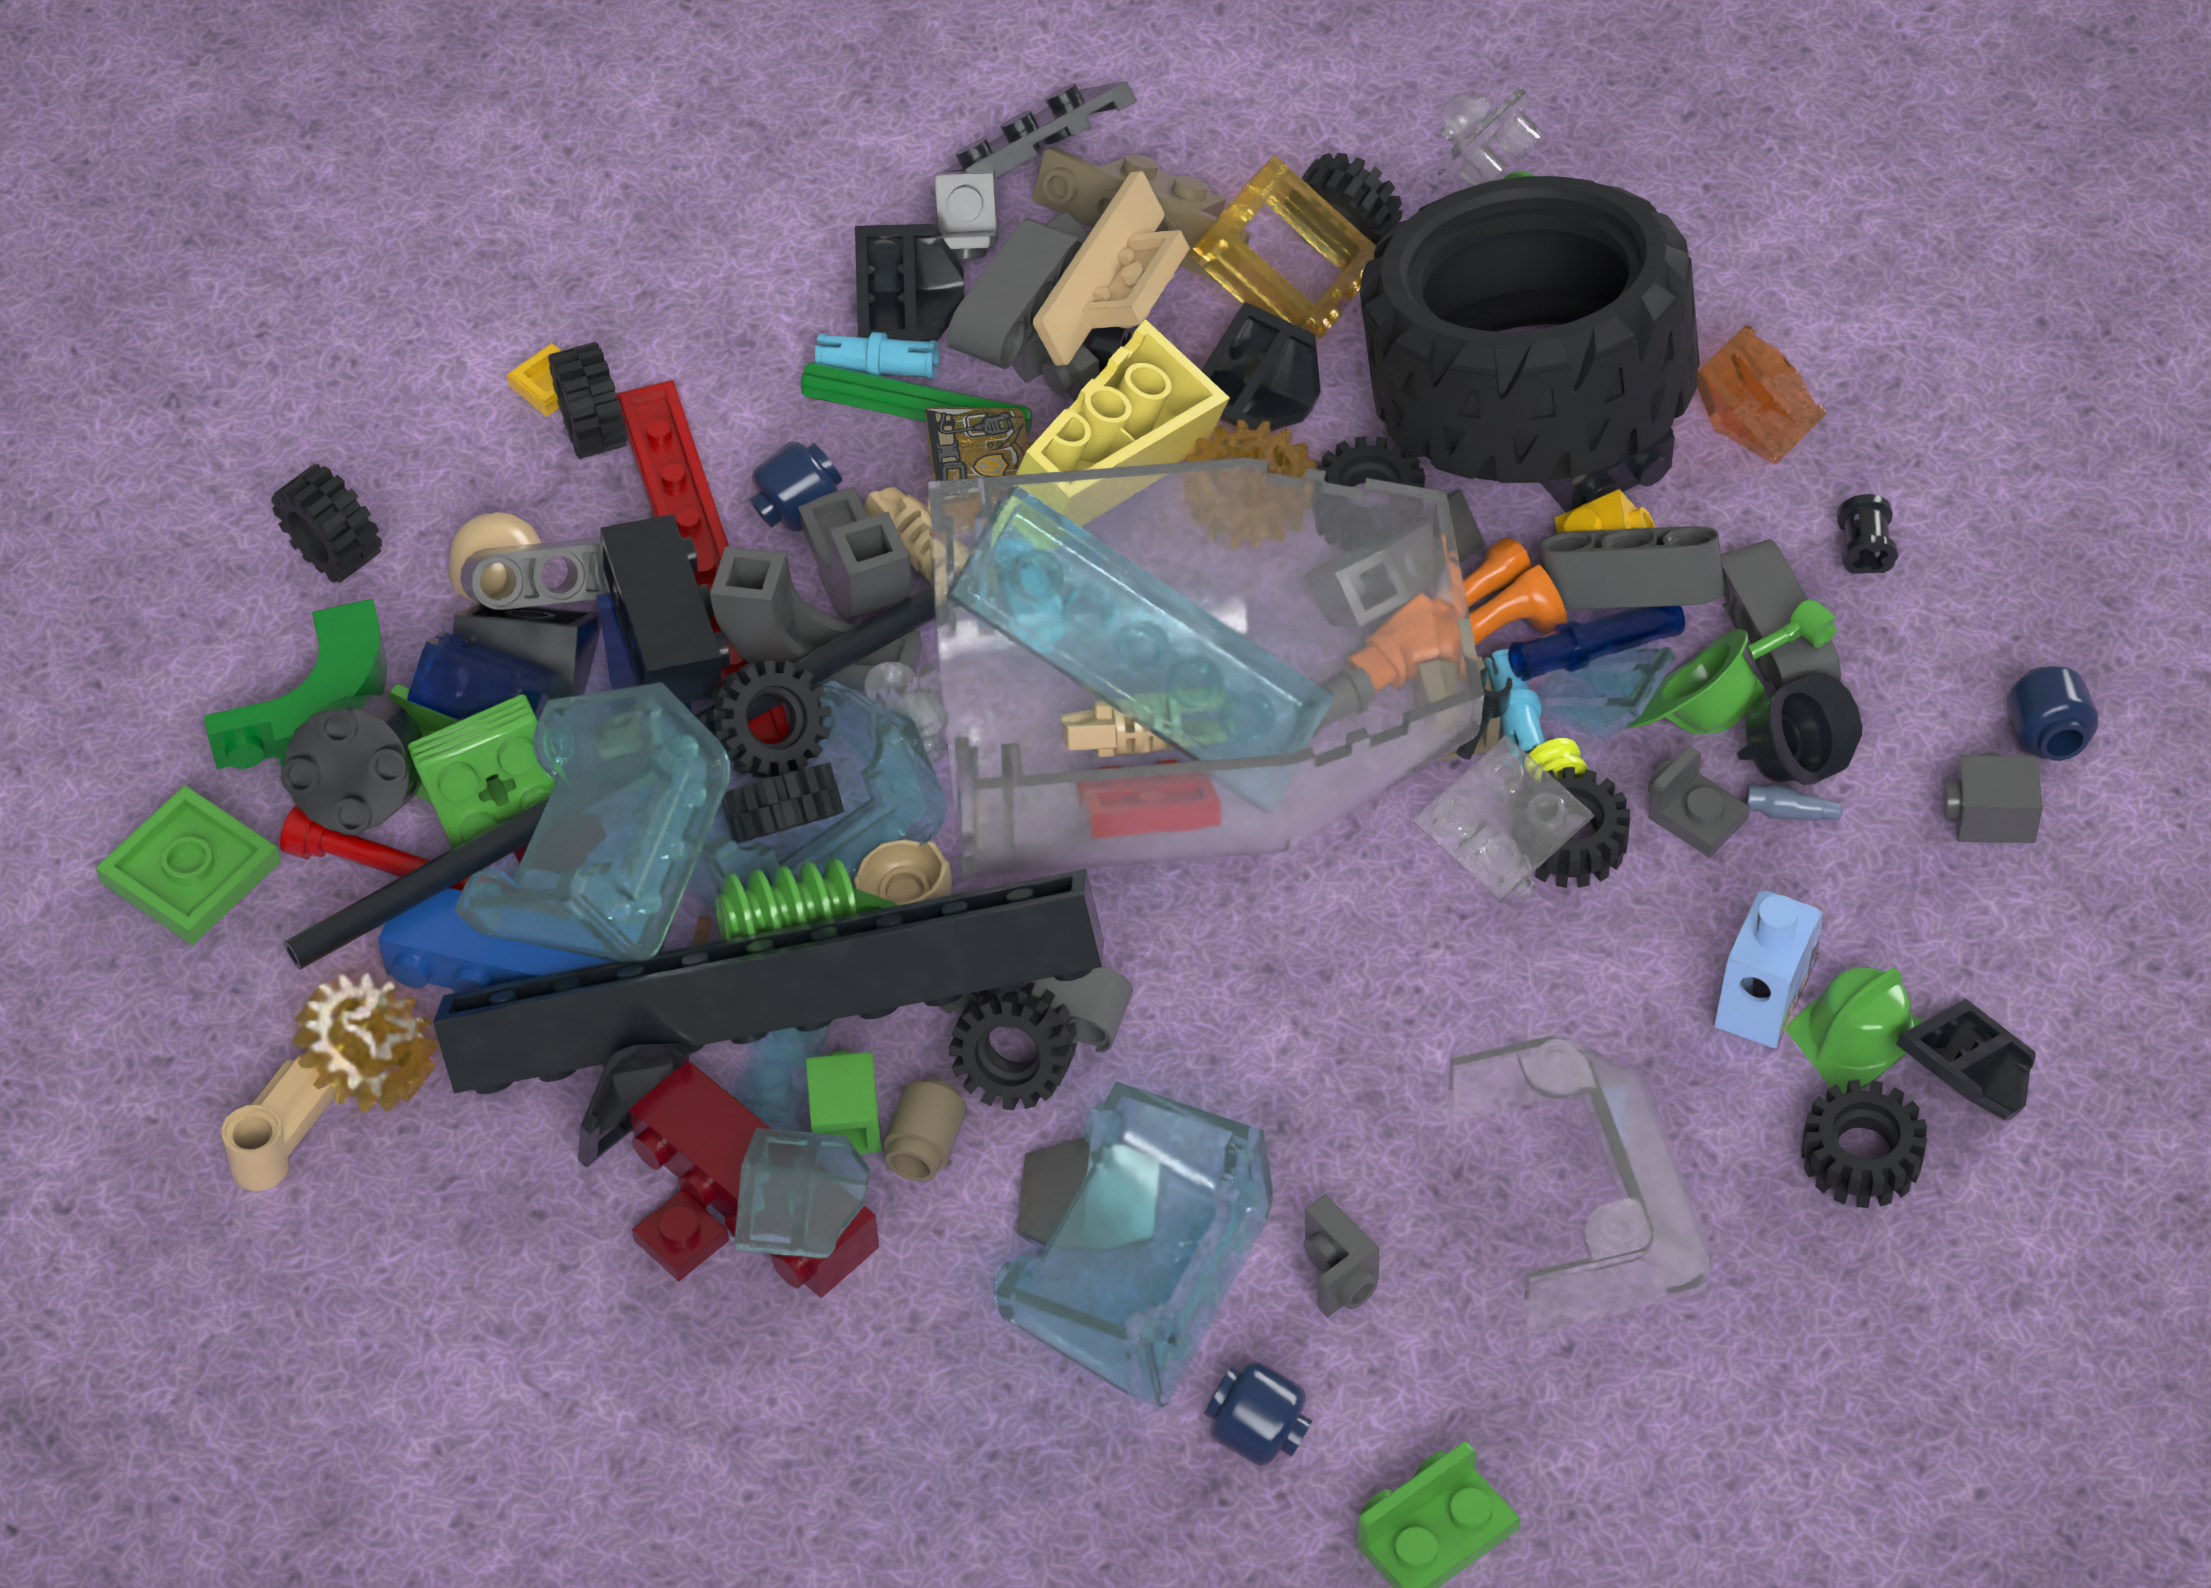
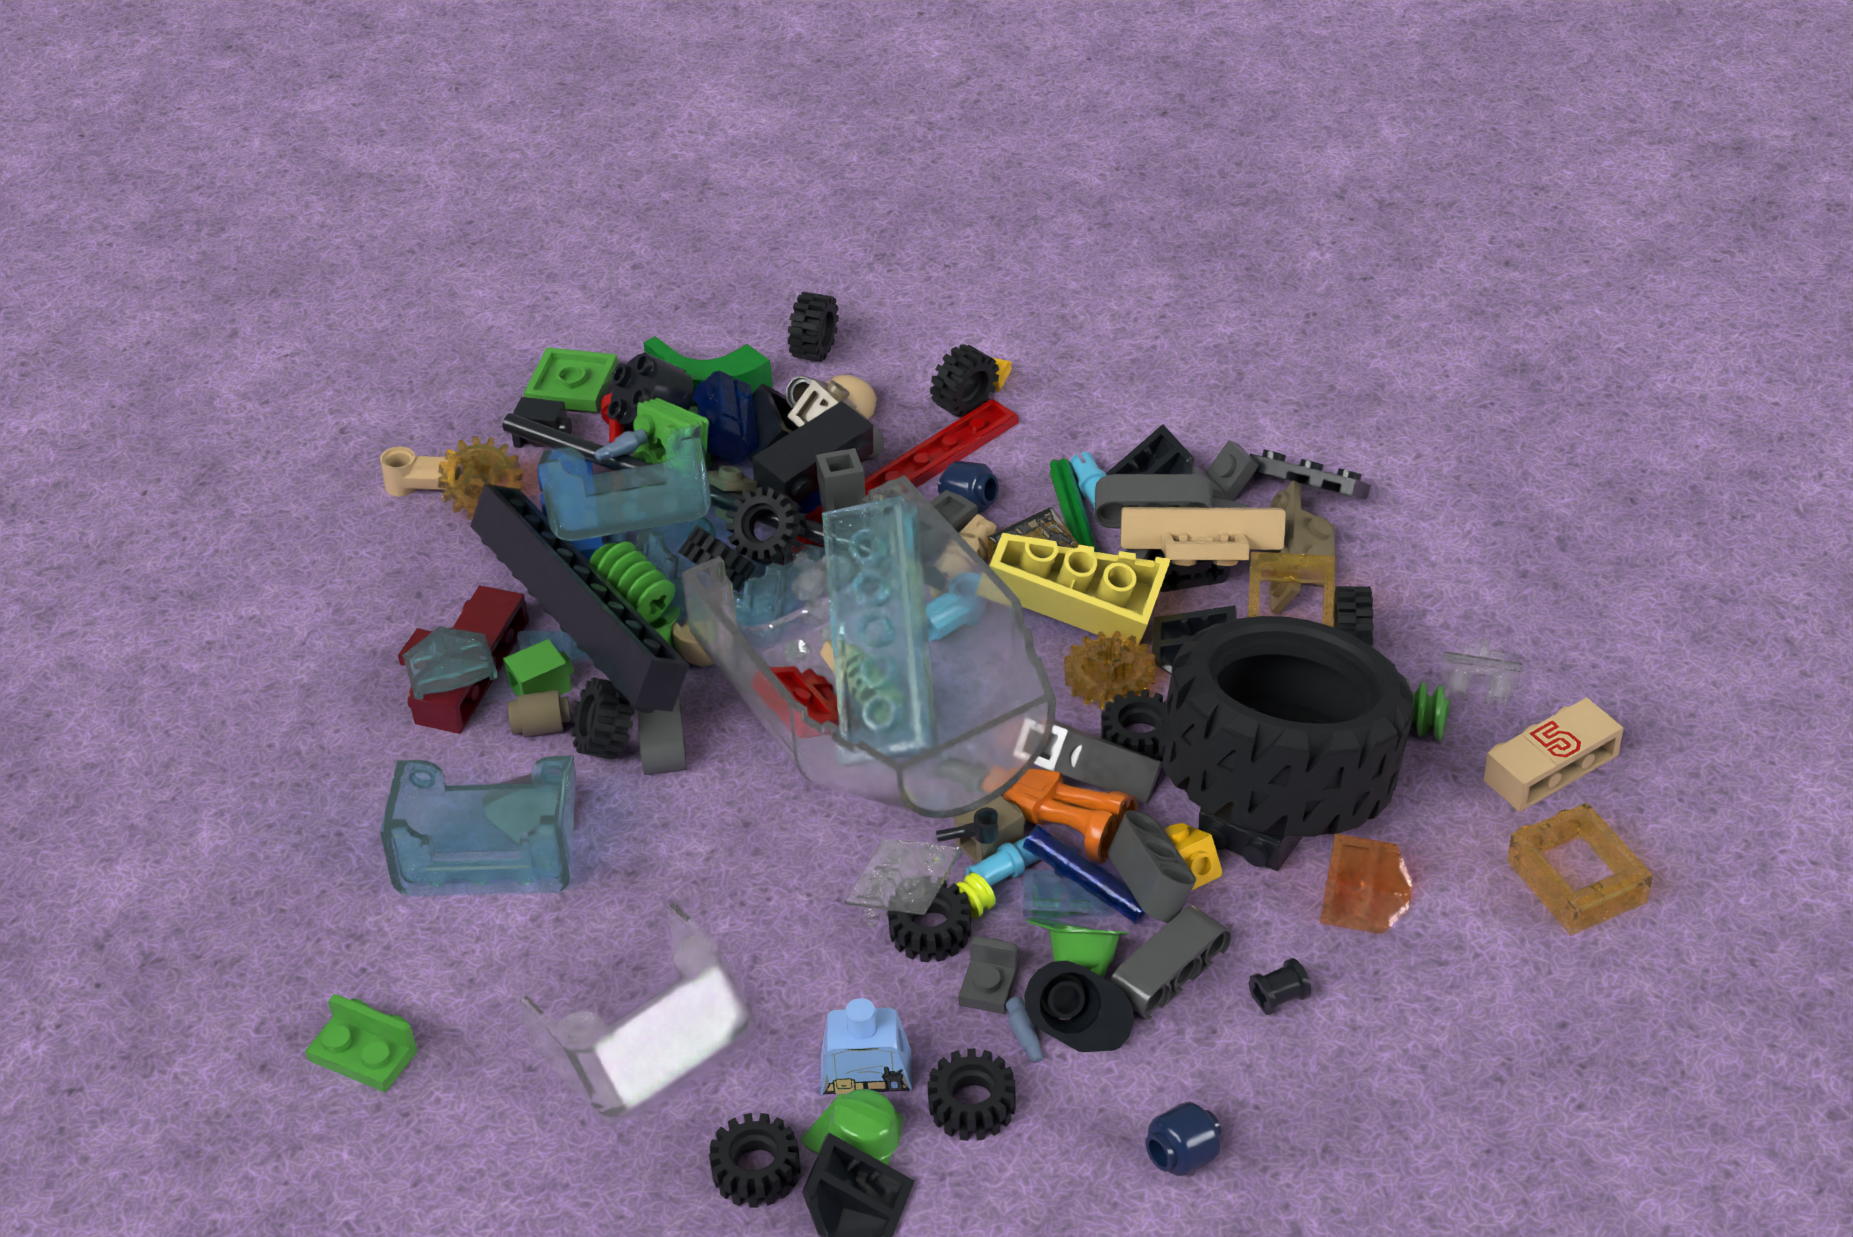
camera: 65 degrees right, 10 degrees down
(260, 928) = (544, 412): none -> black brick
(480, 821) = (623, 444): none -> sand blue piece
(561, 569) = (817, 399): none -> bracket
(624, 1081) = (484, 569): black slope -> none
(1258, 1413) = (403, 929): dark blue head -> none
(1343, 1255) = (537, 929): dark grey bracket -> none
(1656, 133) = (1552, 754): none -> tan brick
(1808, 620) = (1153, 968): bright green hand -> none
(1843, 232) = (1595, 902): none -> clear yellow window
(1875, 859) = (977, 1116): none -> black tyre
(1995, 799) = (1089, 1133): dark grey brick -> none

